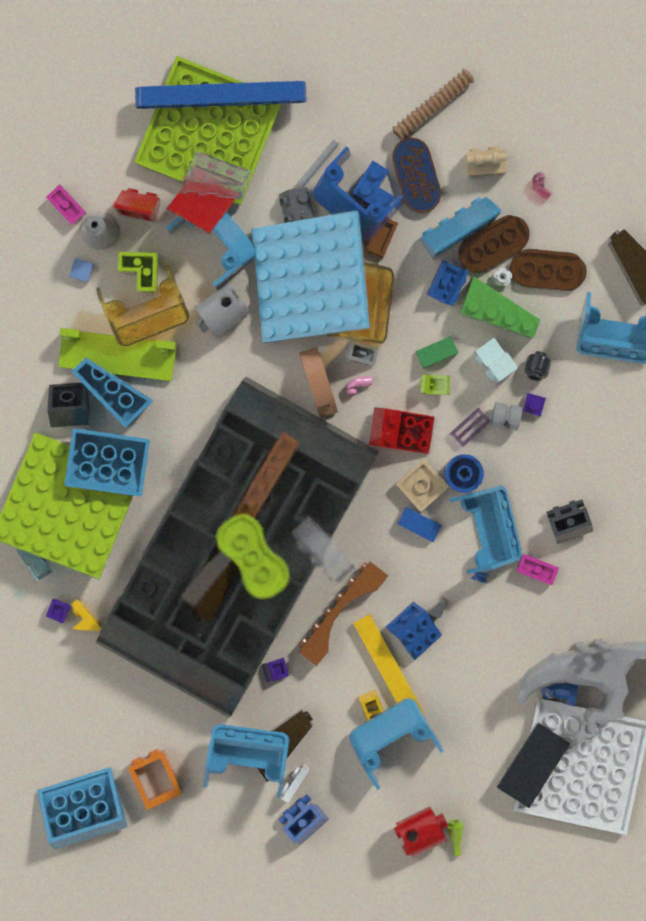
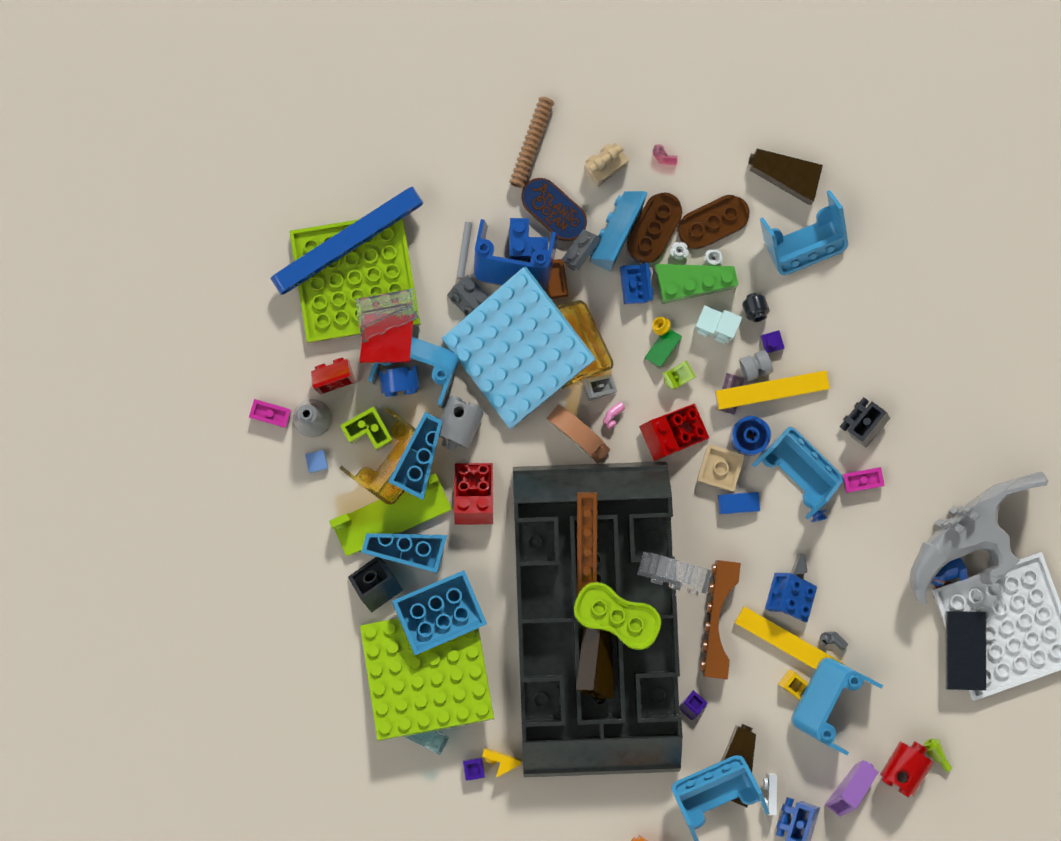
camera: 35 degrees left, 5 degrees down
(164, 322) = (417, 460): none -> dark azure wedge
(192, 243) = (399, 380): none -> blue brick
(198, 379) = (473, 493): none -> red slope
(366, 820) = (852, 788): none -> medium lavender slope
(417, 225) = (580, 250): none -> dark grey bracket
(428, 686) = (833, 638): none -> dark grey arm
(446, 332) = (661, 325): none -> yellow plate
(507, 445) = (772, 390): none -> yellow tile
(528, 296) = (713, 253): none -> white plate

